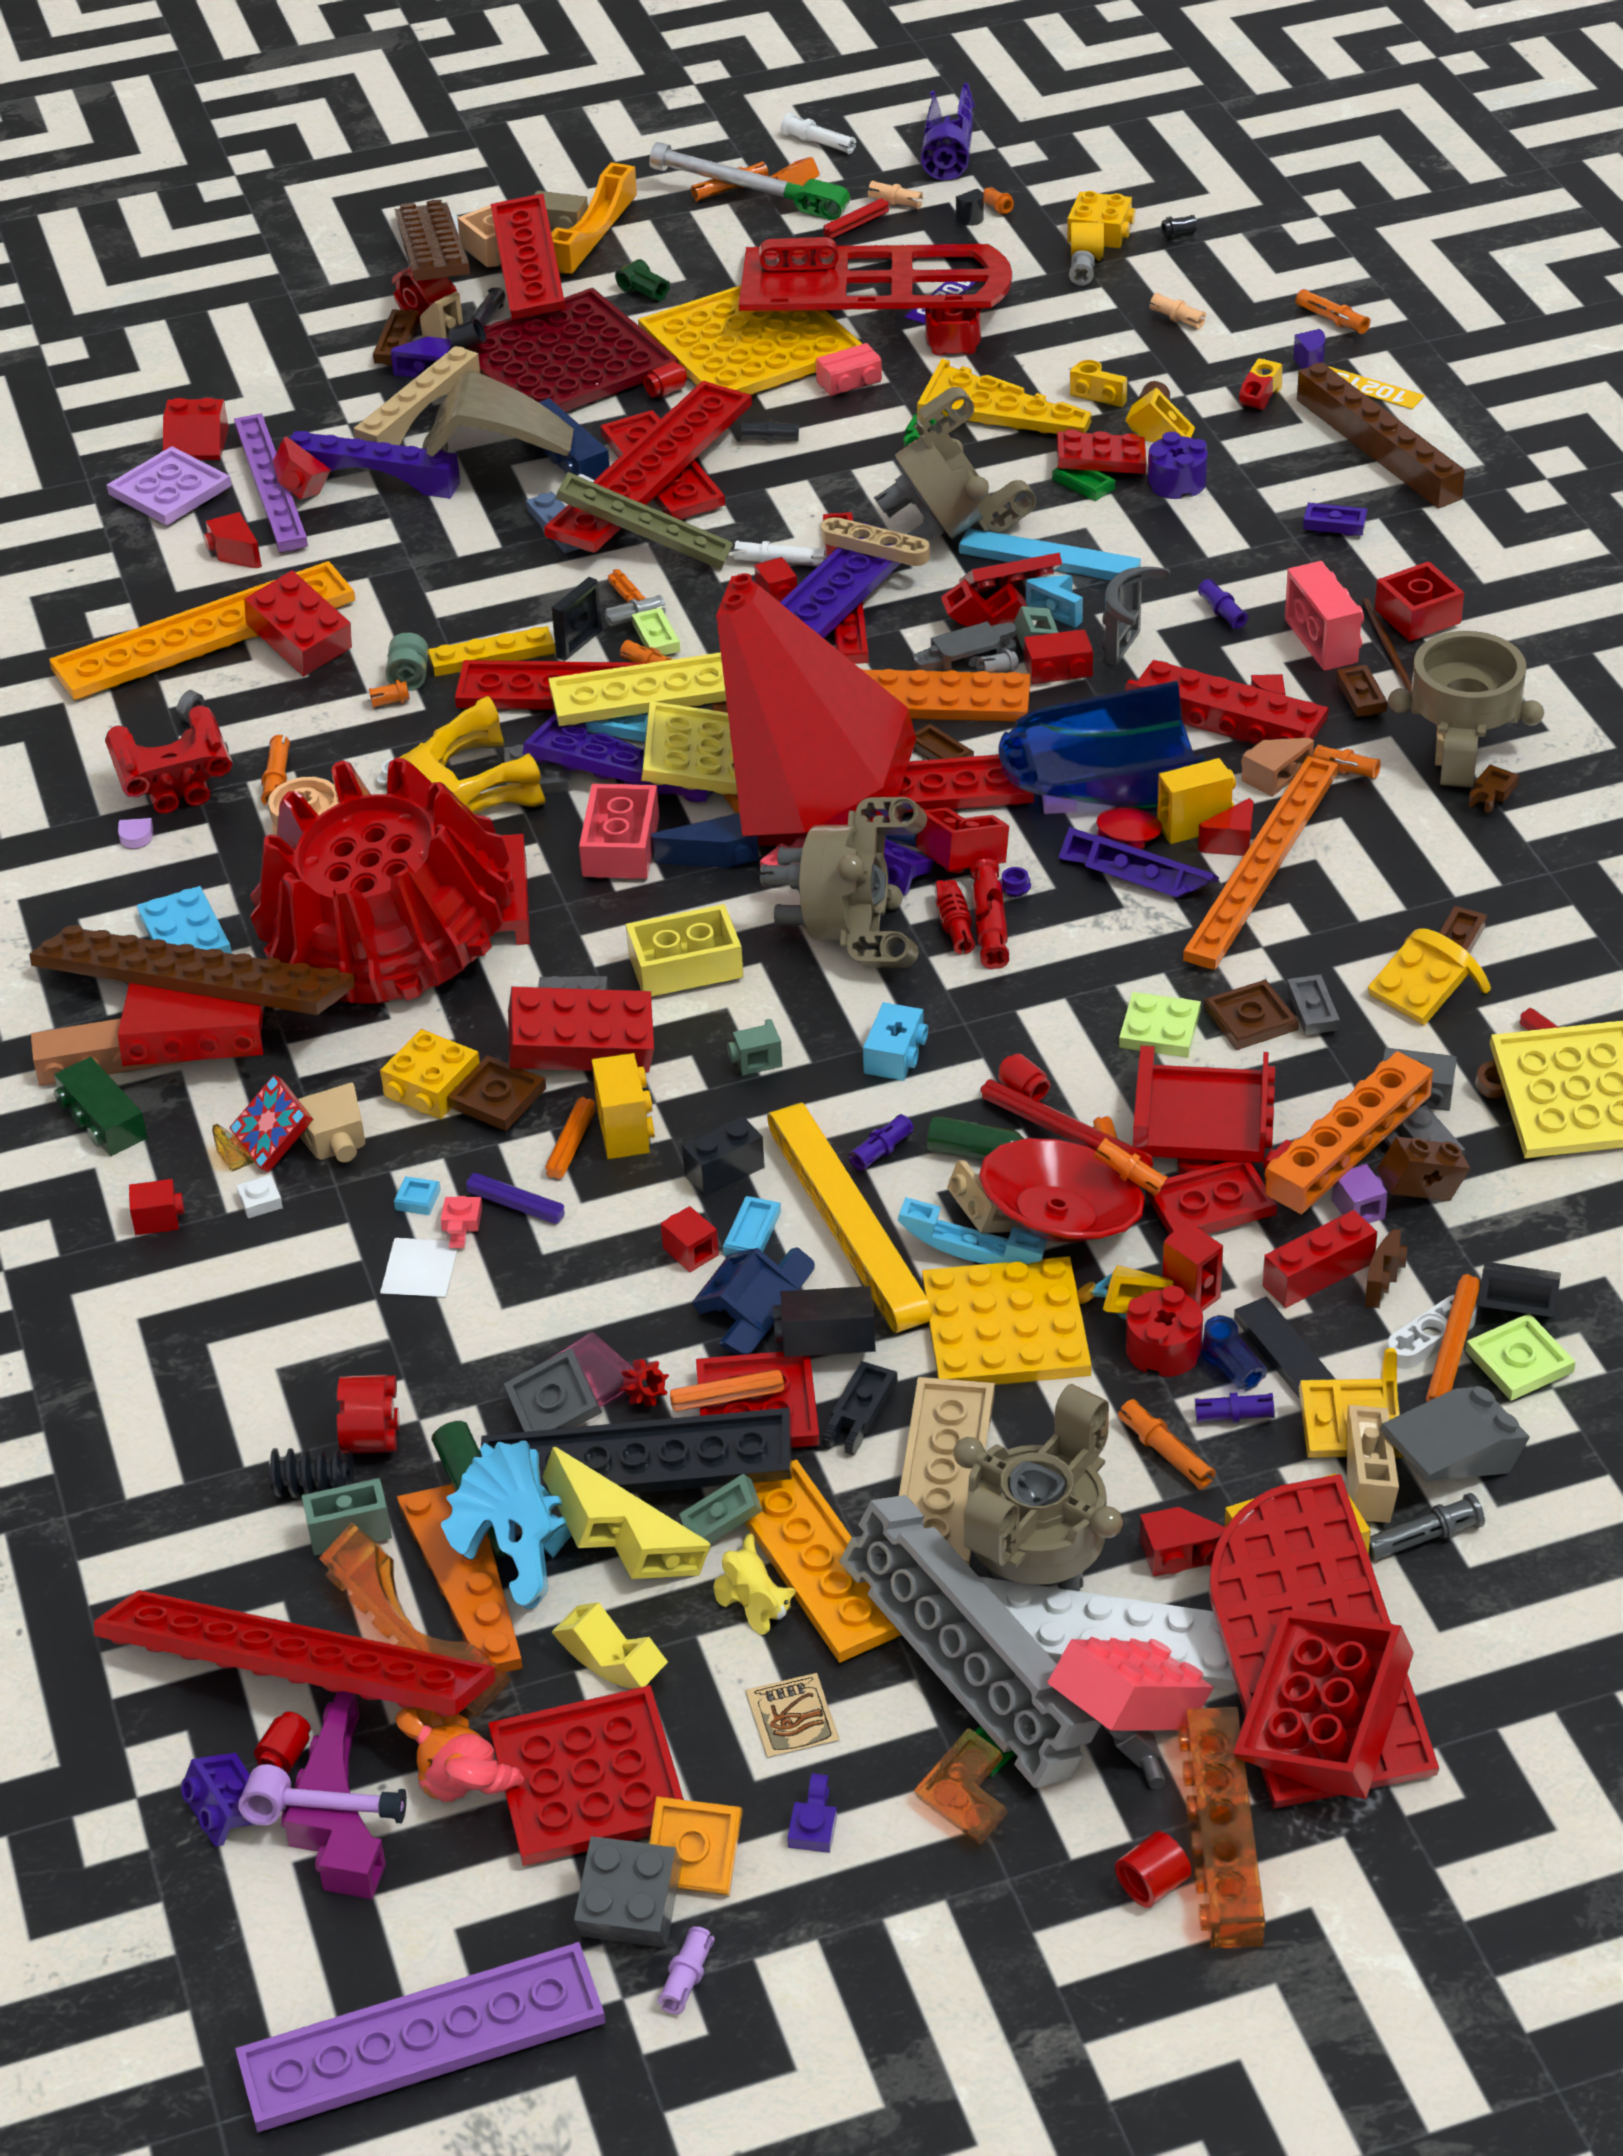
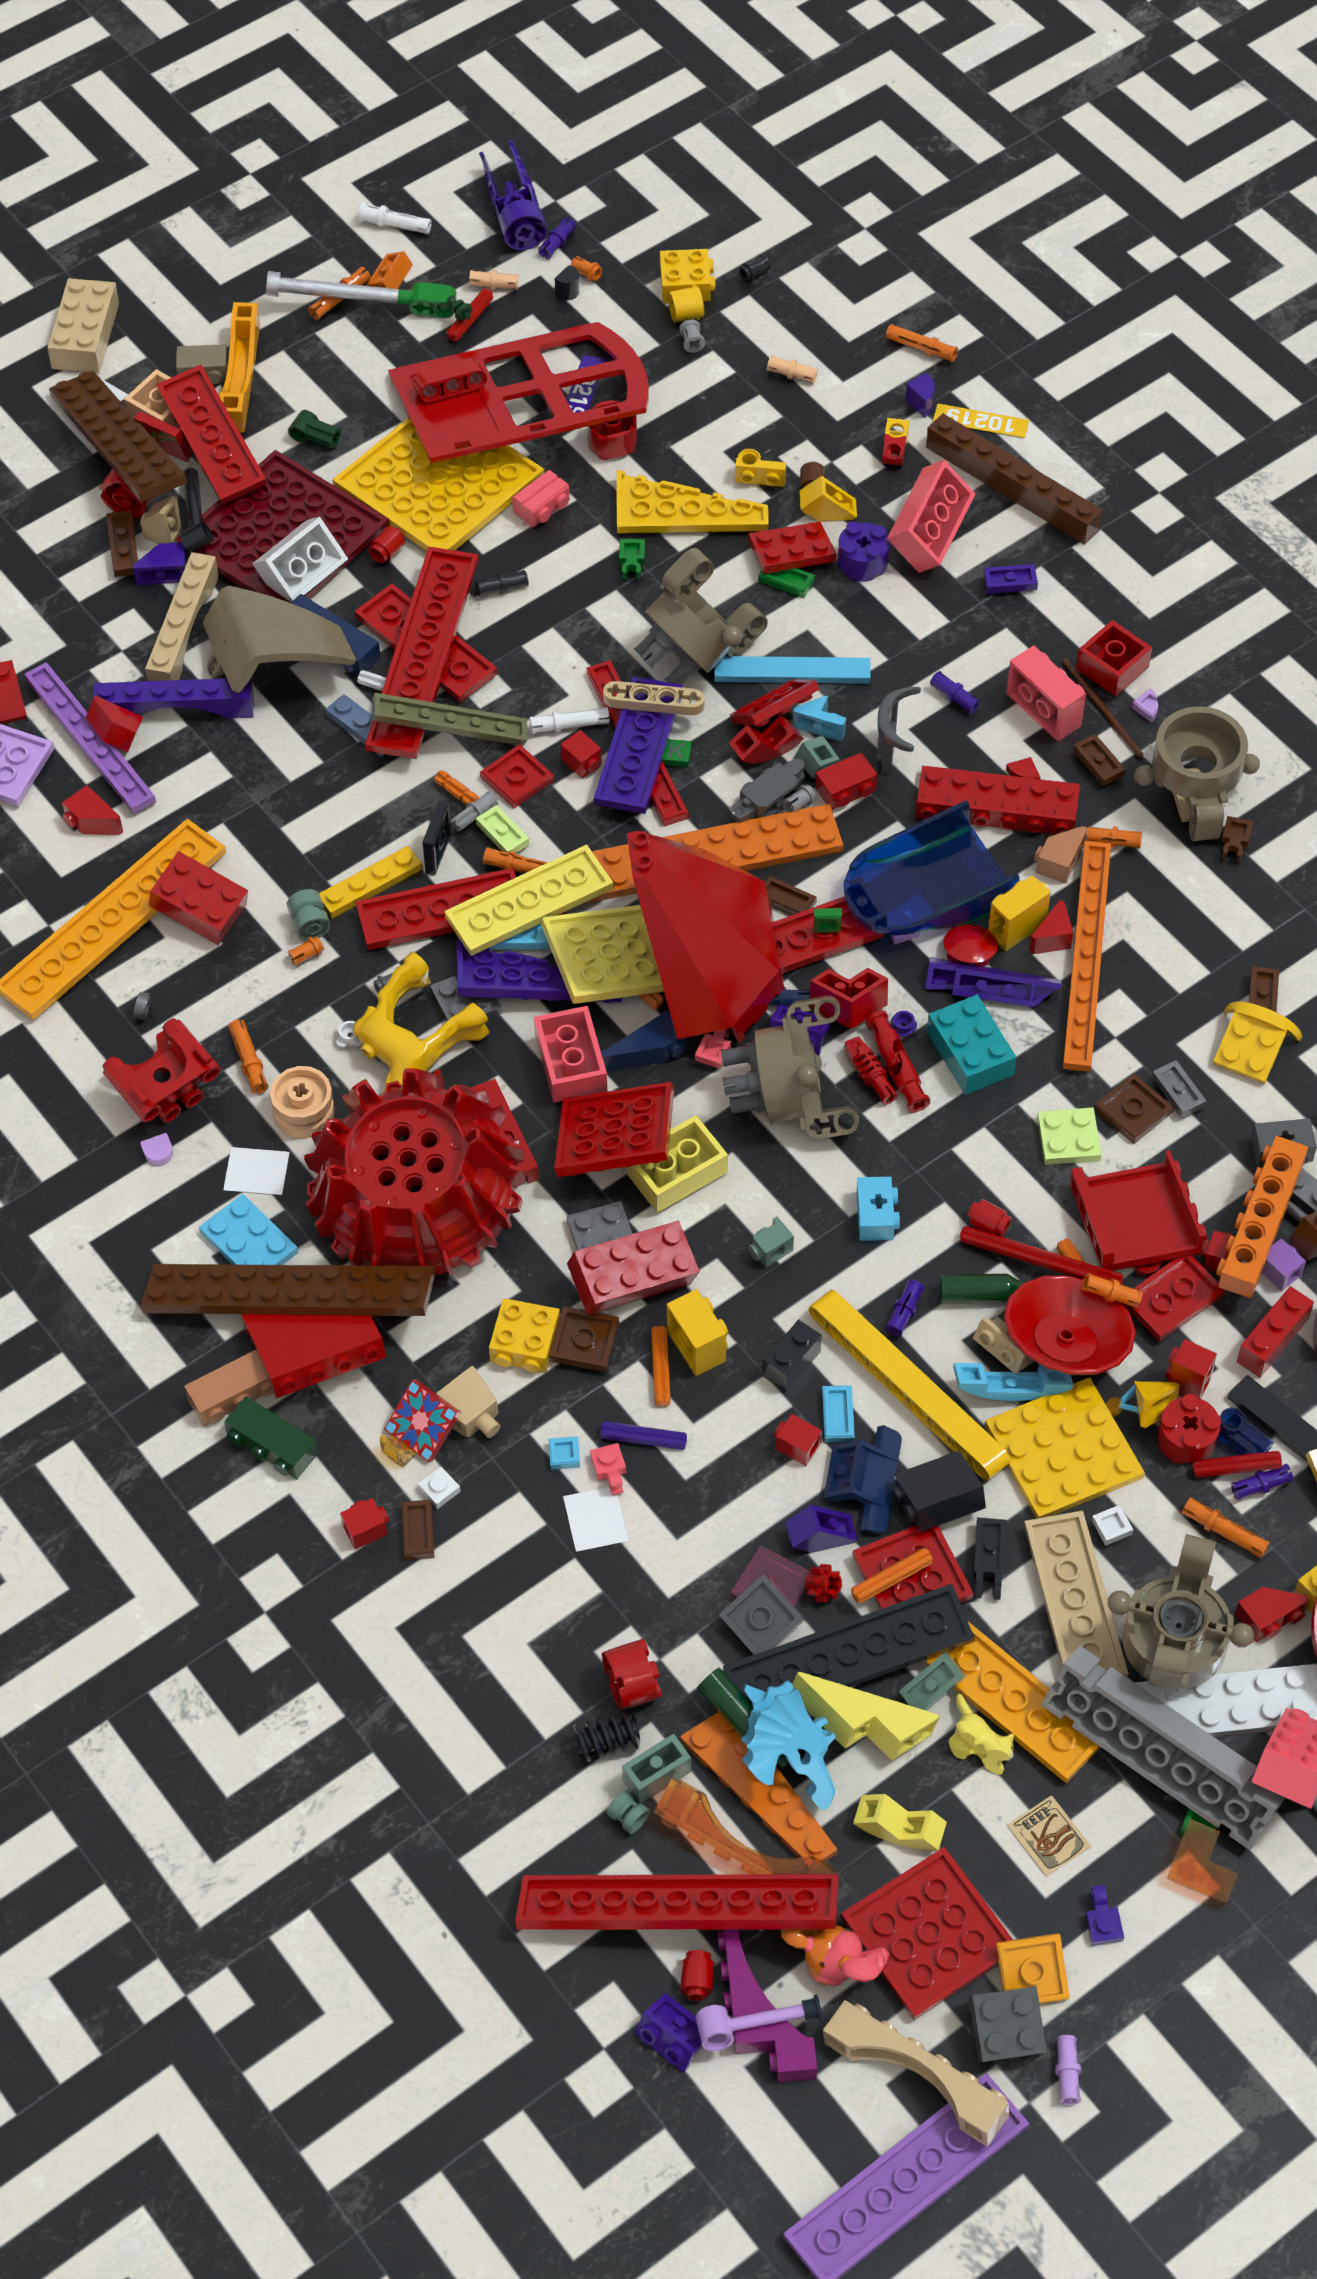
camera: 20 degrees left, 15 degrees up
(213, 1230) = (417, 1530): none -> reddish brown tile
(227, 874) = (256, 1171): none -> white sticker
(293, 1555) = (628, 1812): none -> sand green wheel
(445, 1862) = (862, 2037): none -> tan arch
(456, 164) = (83, 325): none -> tan brick
(481, 255) = (165, 435): none -> red tile
(564, 368) = (300, 559): none -> white slope
(626, 900) = (614, 1129): none -> red plate
(669, 1330) = (820, 1529): none -> dark purple slope
(695, 591) = (516, 776): none -> red tile
(844, 206) = (461, 309): none -> dark green hair
(884, 603) = (677, 753): none -> green tile
(968, 764) = (827, 920): none -> green tile
(980, 173) = (557, 238): none -> dark purple pin
(1025, 1408) = (1112, 1525): none -> white plate
(1082, 913) = (971, 1044): none -> teal brick
(1210, 1379) = (1237, 1464): none -> red axle
(1265, 444) = (931, 516): none -> coral brick

